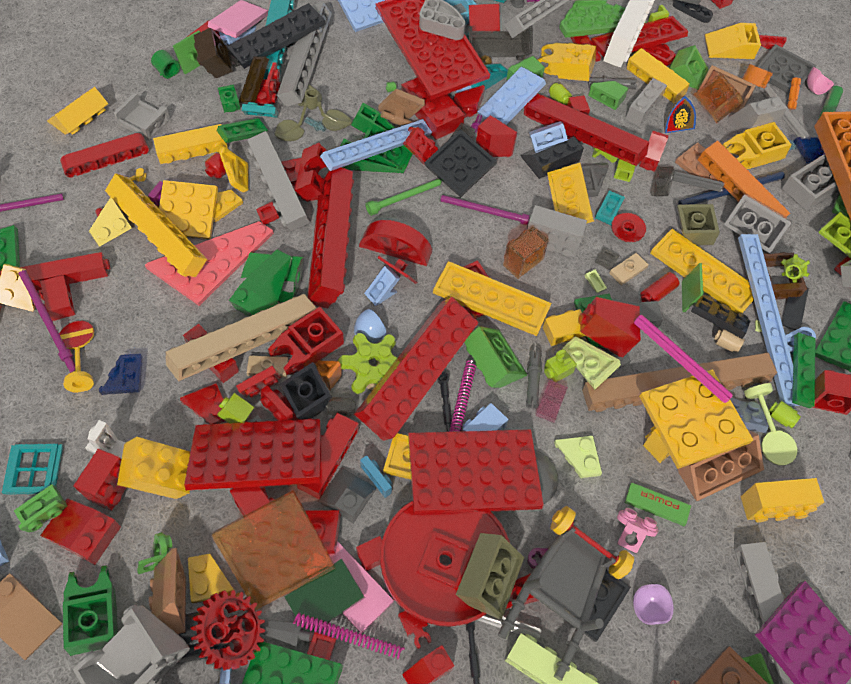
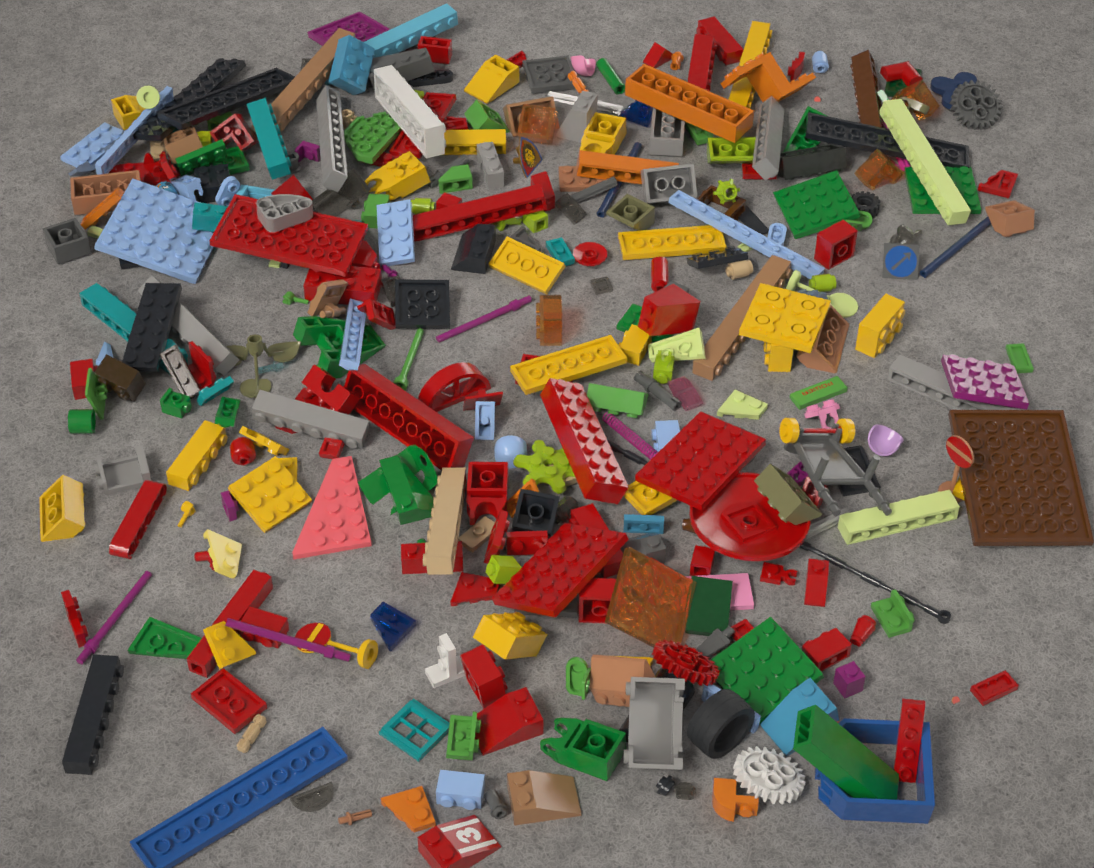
camera: 45 degrees left, 15 degrees down
(156, 226) = (267, 518): yellow brick -> none
(238, 18) = (91, 343): bright pink tile -> none
(347, 632) = (751, 605): dark pink piece -> none
(496, 138) = (426, 264): red slope -> none
(548, 136) = (459, 237): light blue brick -> none
(561, 230) = (561, 281): light grey brick -> none
(595, 281) = (611, 304): yellowish green piece -> none
(628, 269) = (623, 280): tan plate -> none
(683, 359) = (737, 288): dark pink axle -> none
(692, 287) = (680, 255): bright green piece -> none
(757, 76) = (543, 90): orange brick -> none
(804, 371) = (803, 248): green plate -> none

